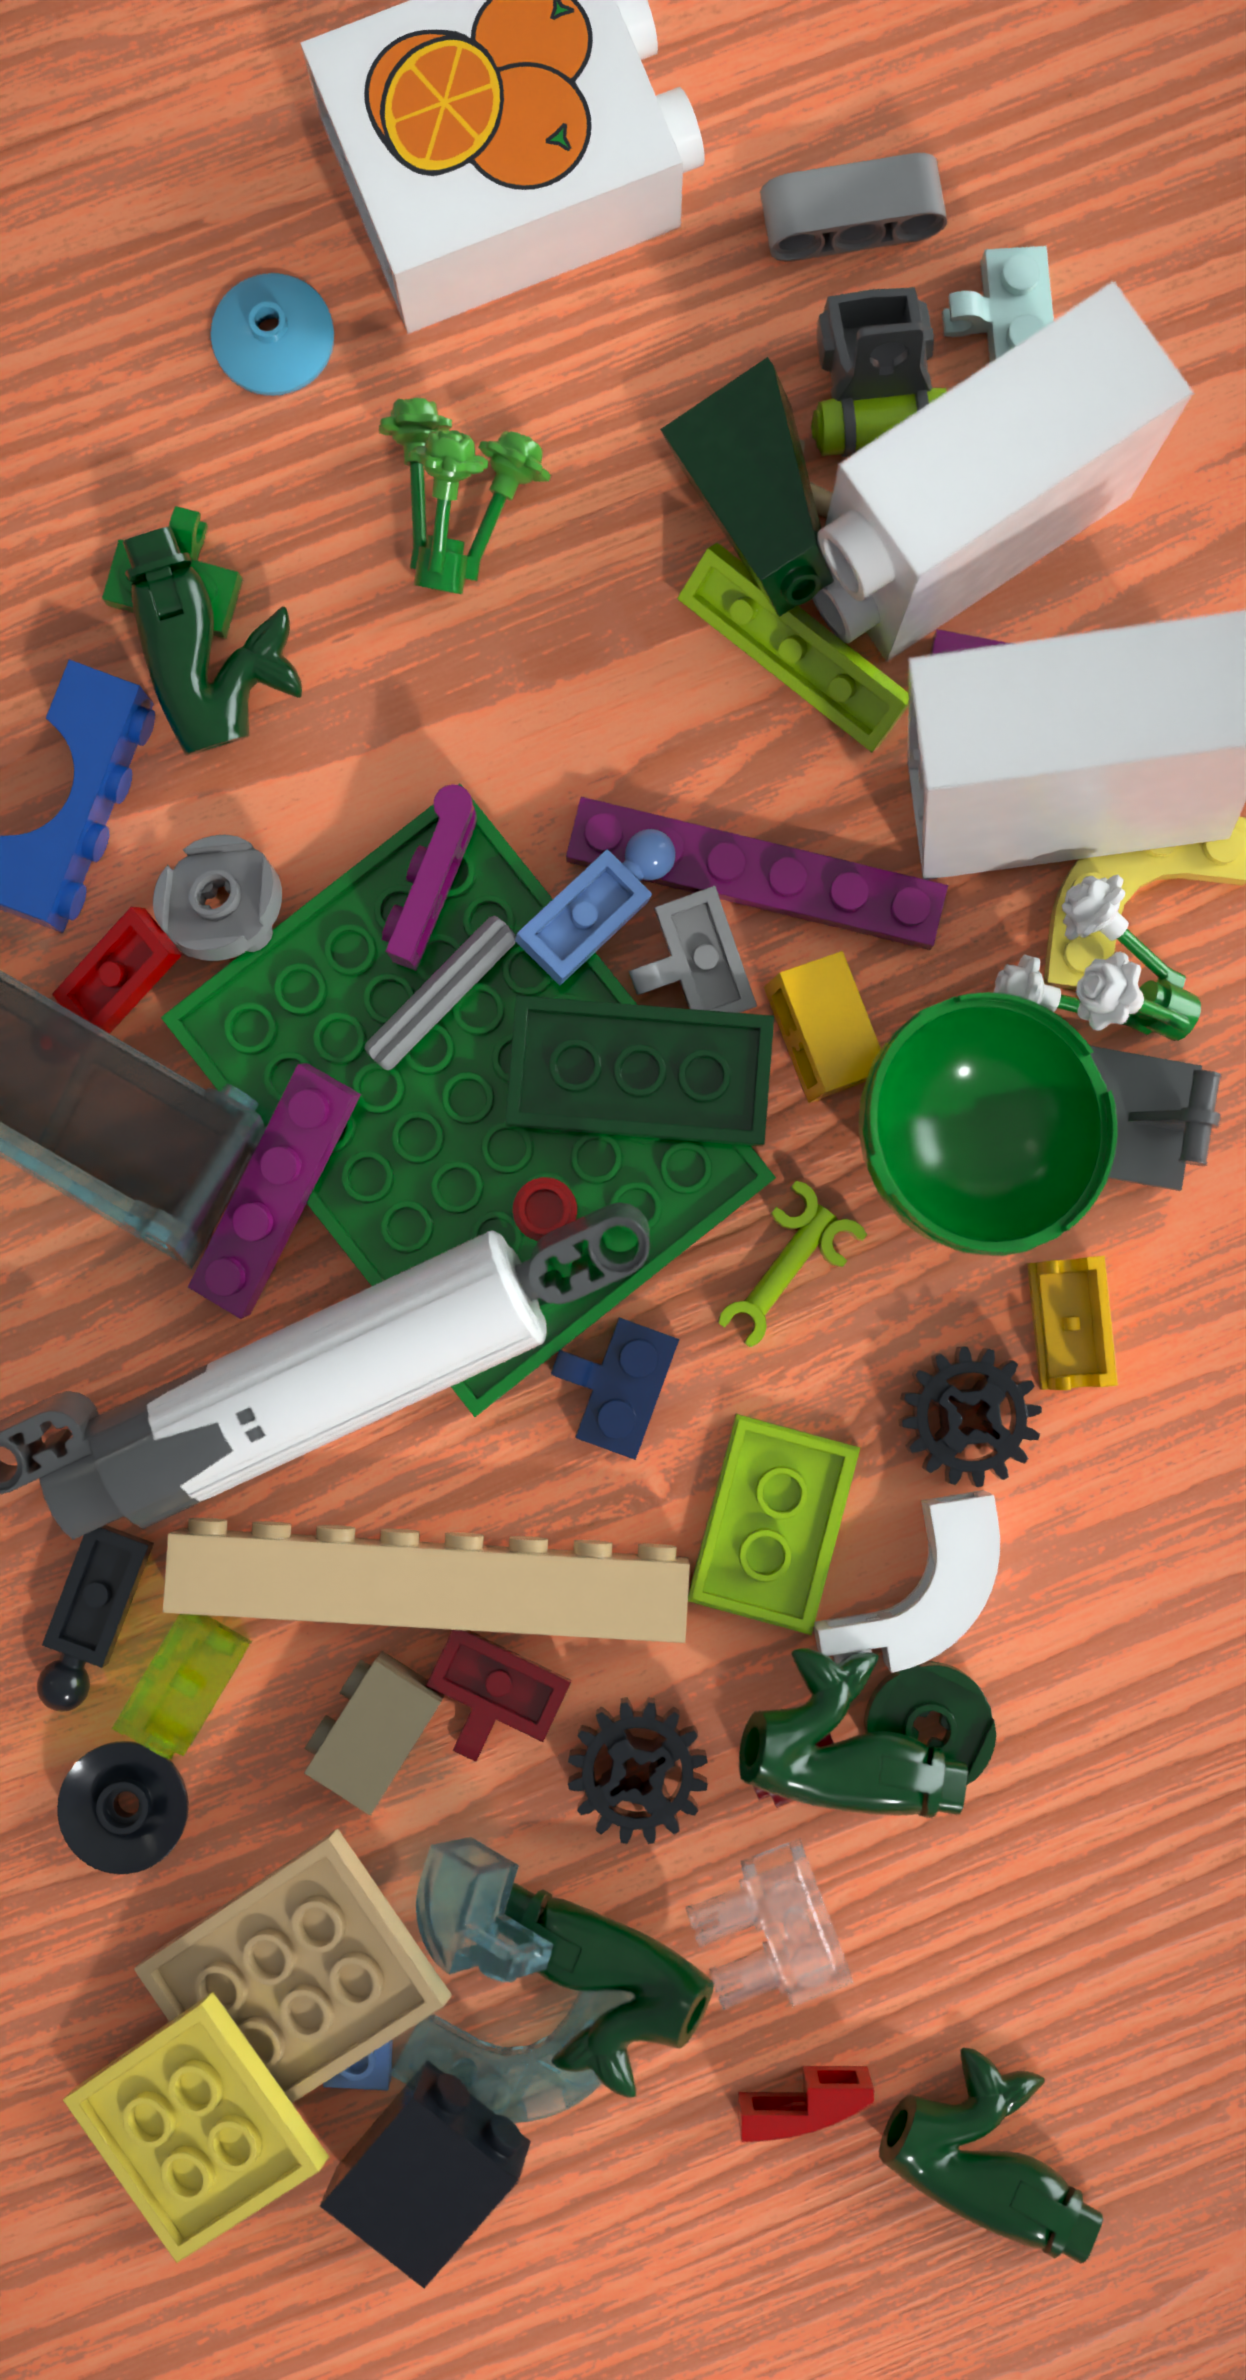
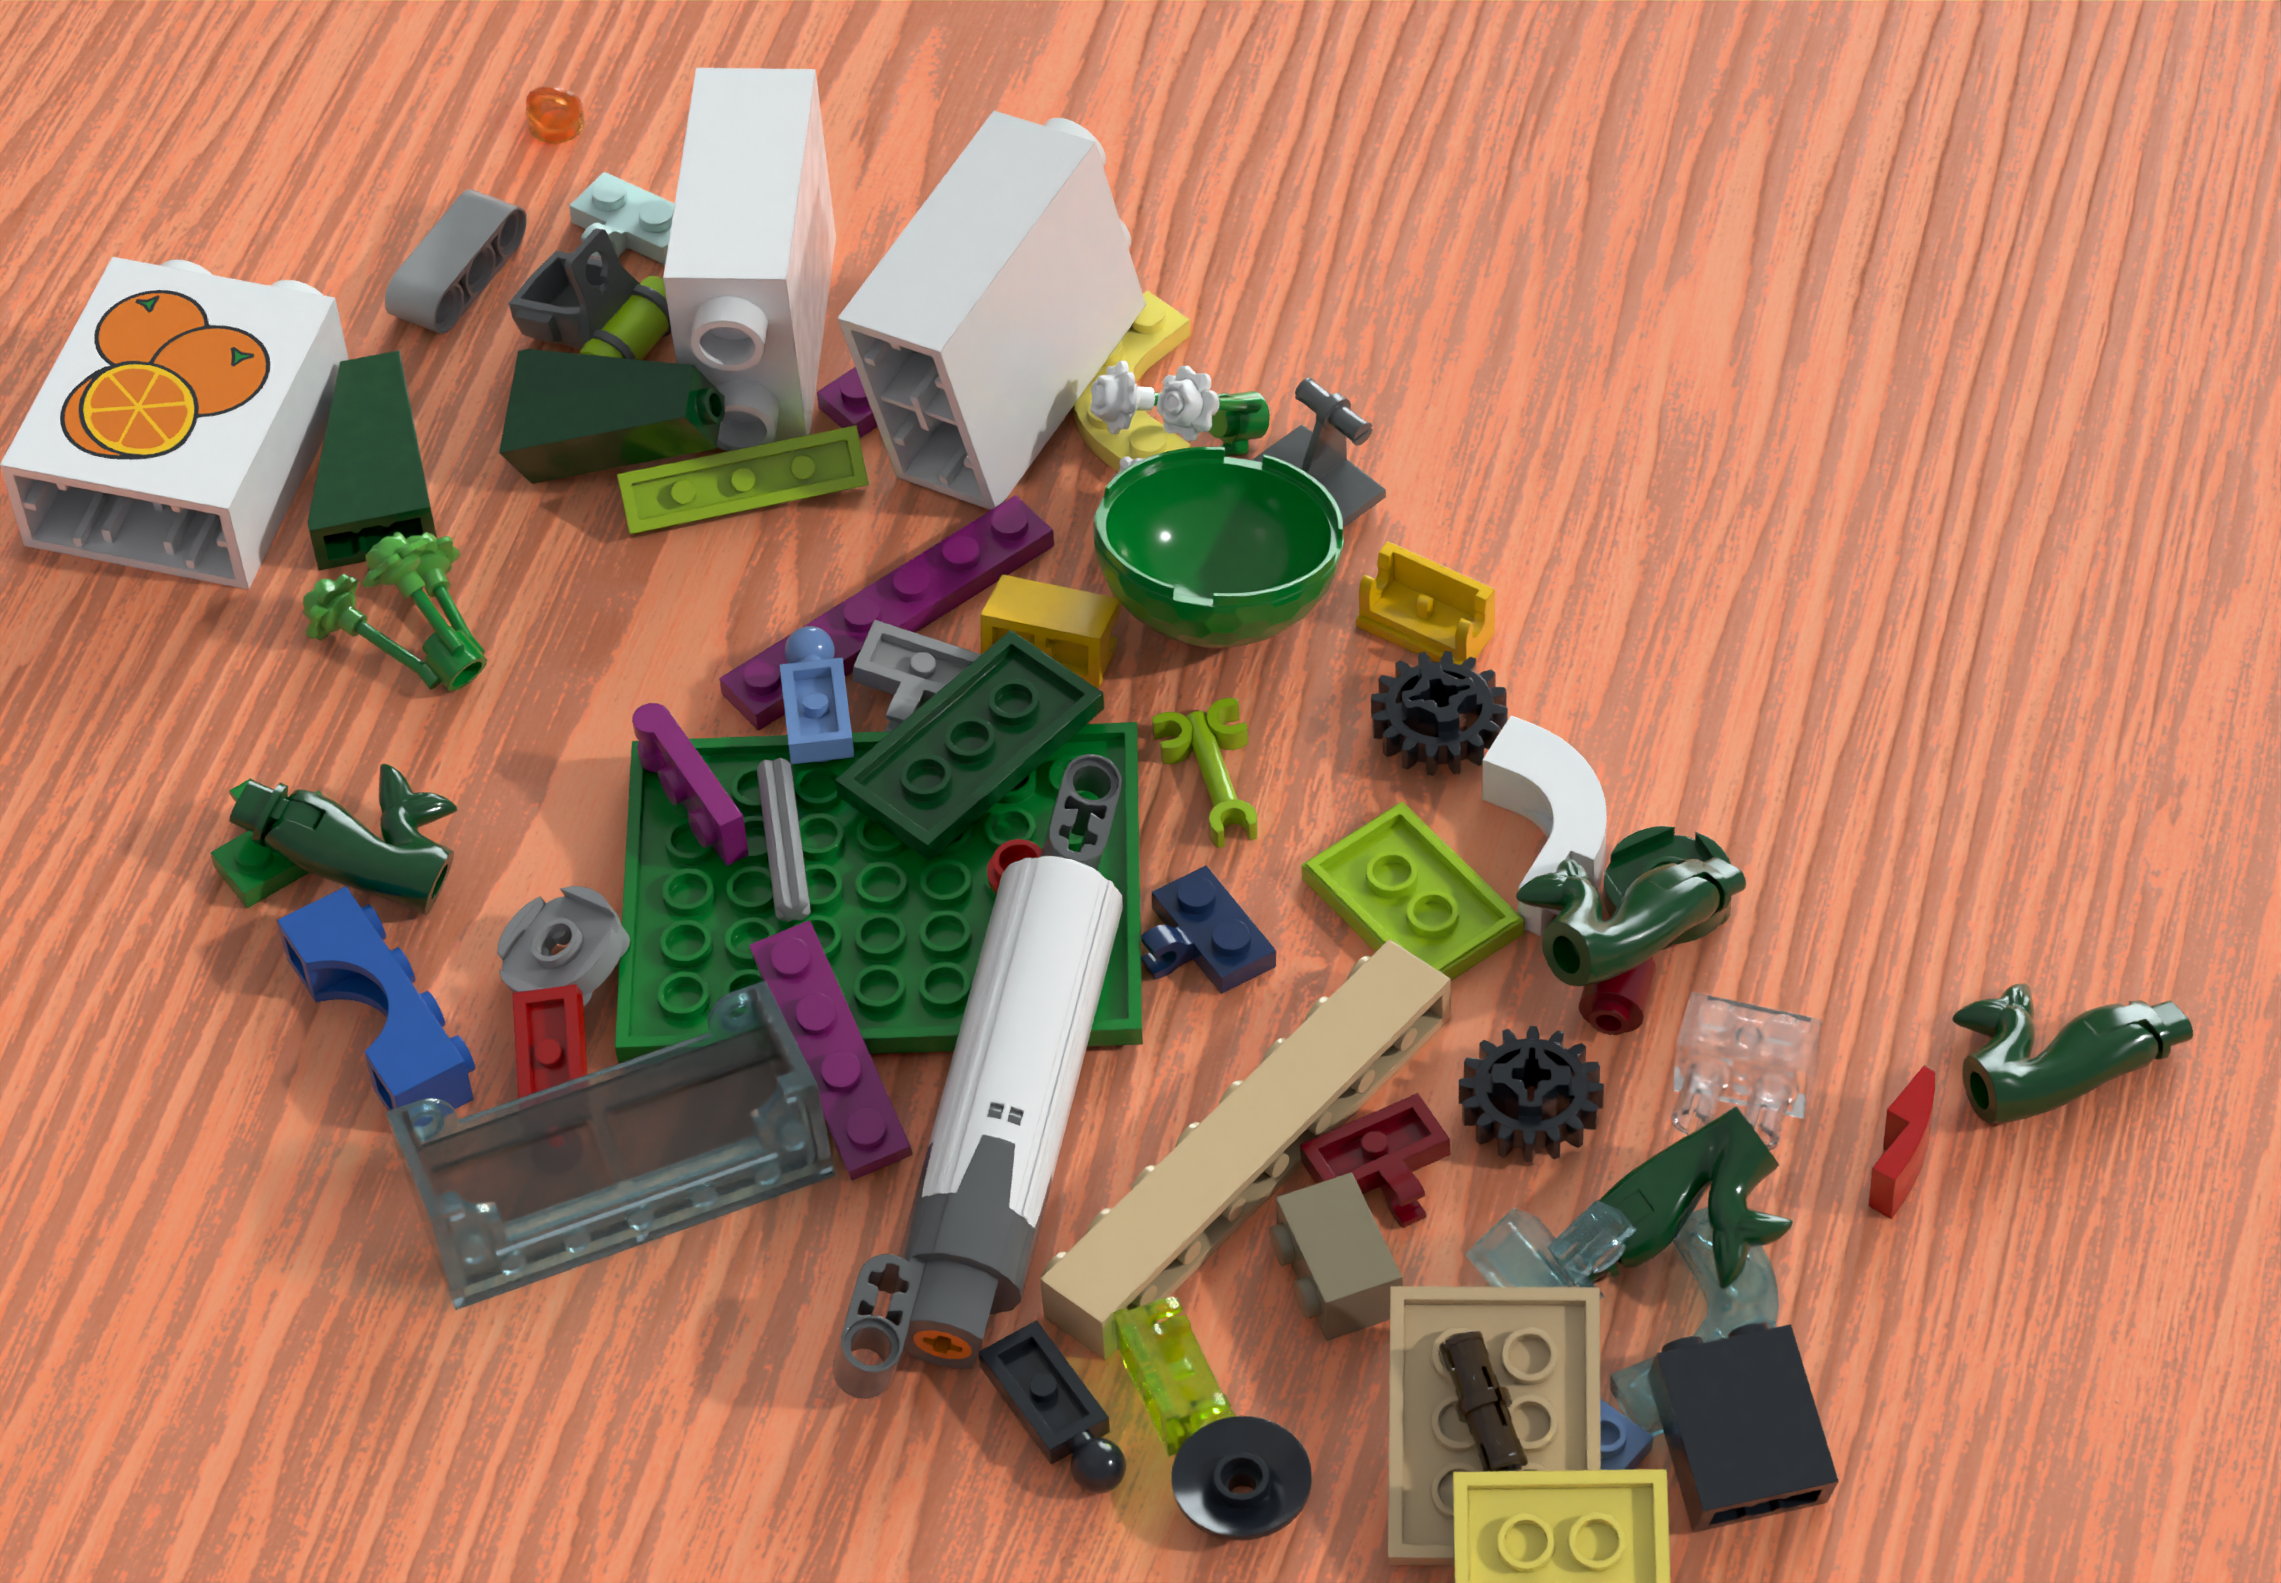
camera: 55 degrees left, 35 degrees down
(275, 359) = (156, 672): medium azure dish -> none
(278, 1983) = (1483, 1403): none -> dark brown pin
(585, 330) = (369, 465): none -> dark green slope
(1082, 147) = (554, 114): none -> clear orange tile

